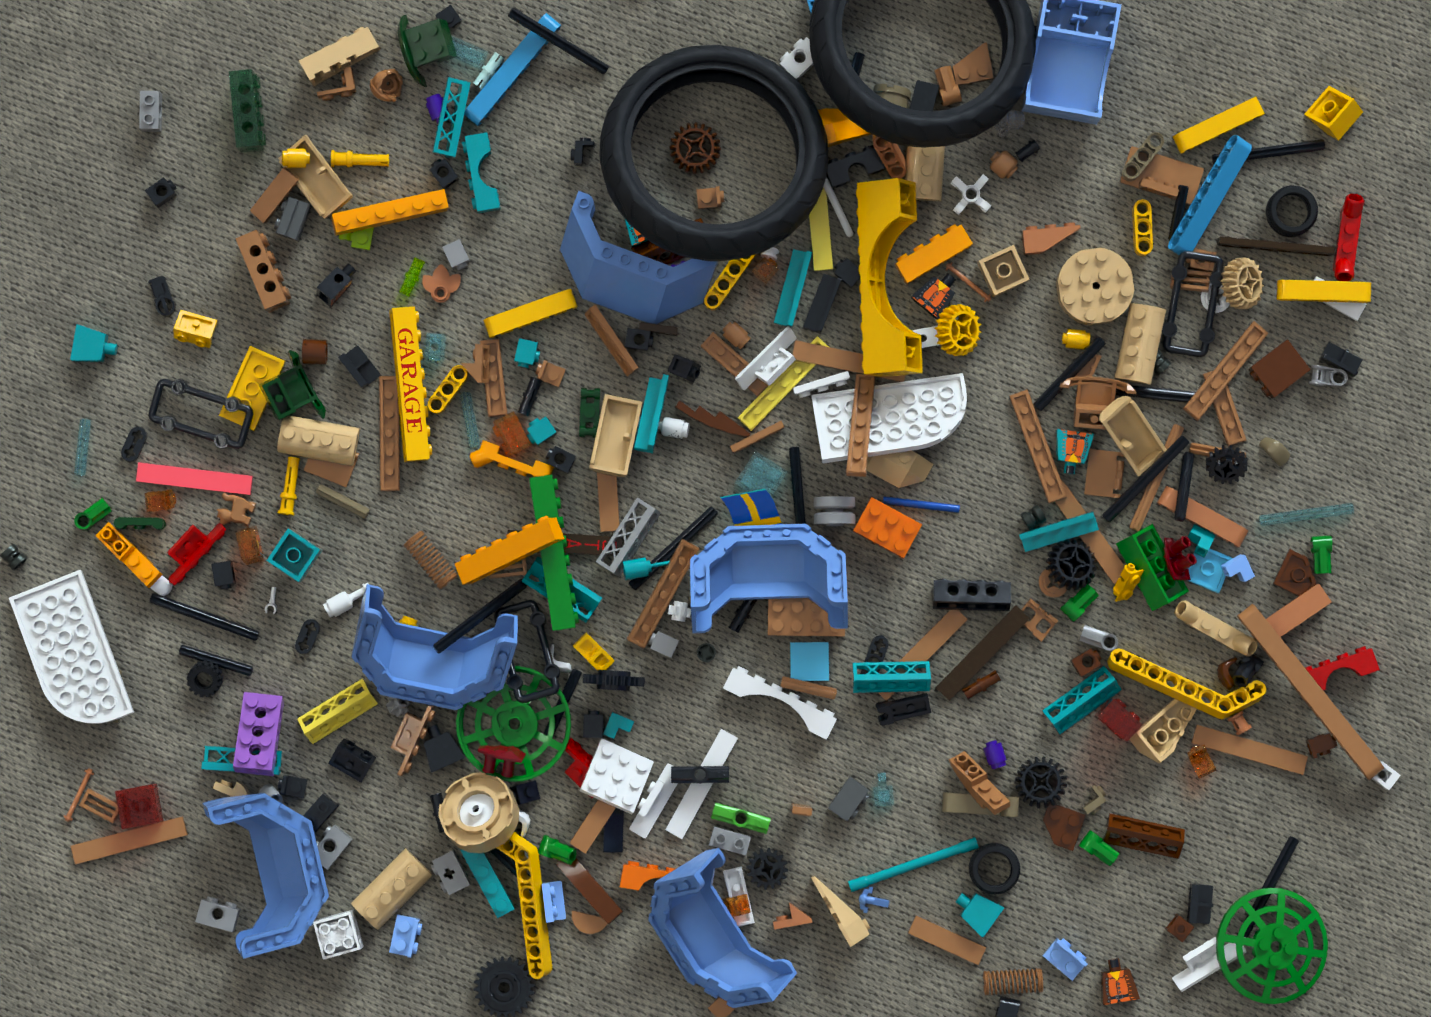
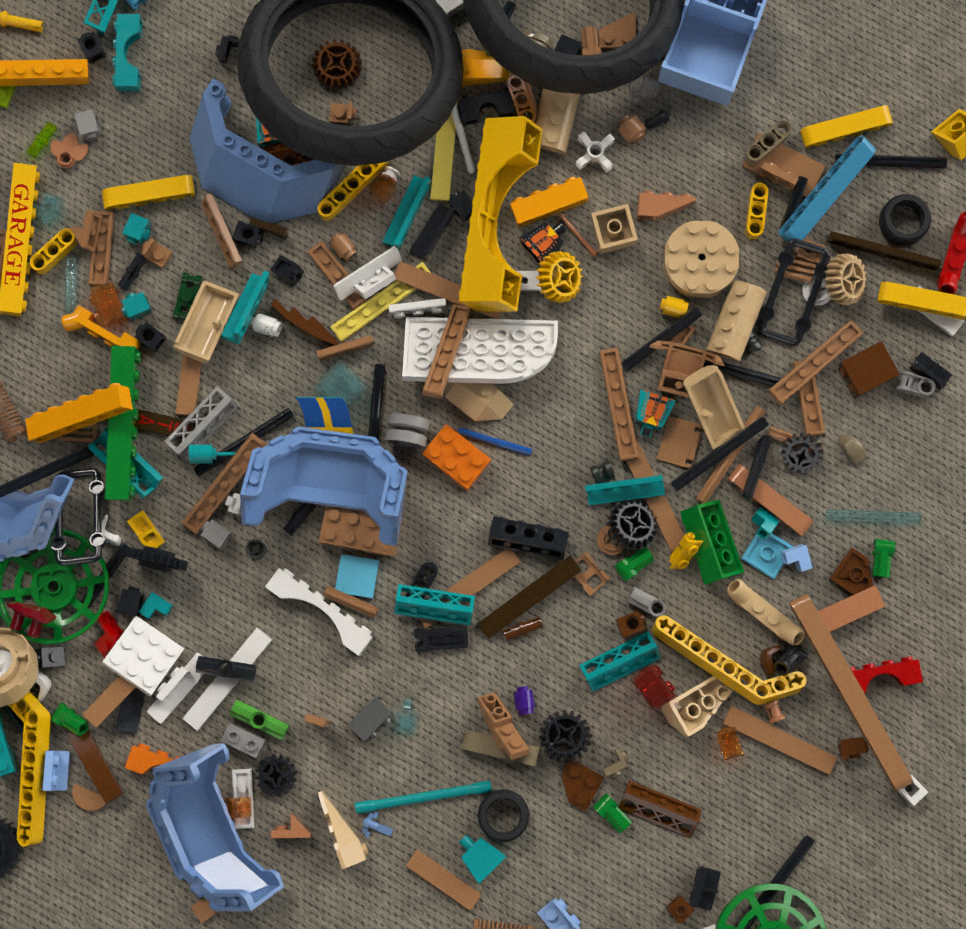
camera: 10 degrees right, 5 degrees down
(1176, 562) = (735, 539): dark red connector -> none

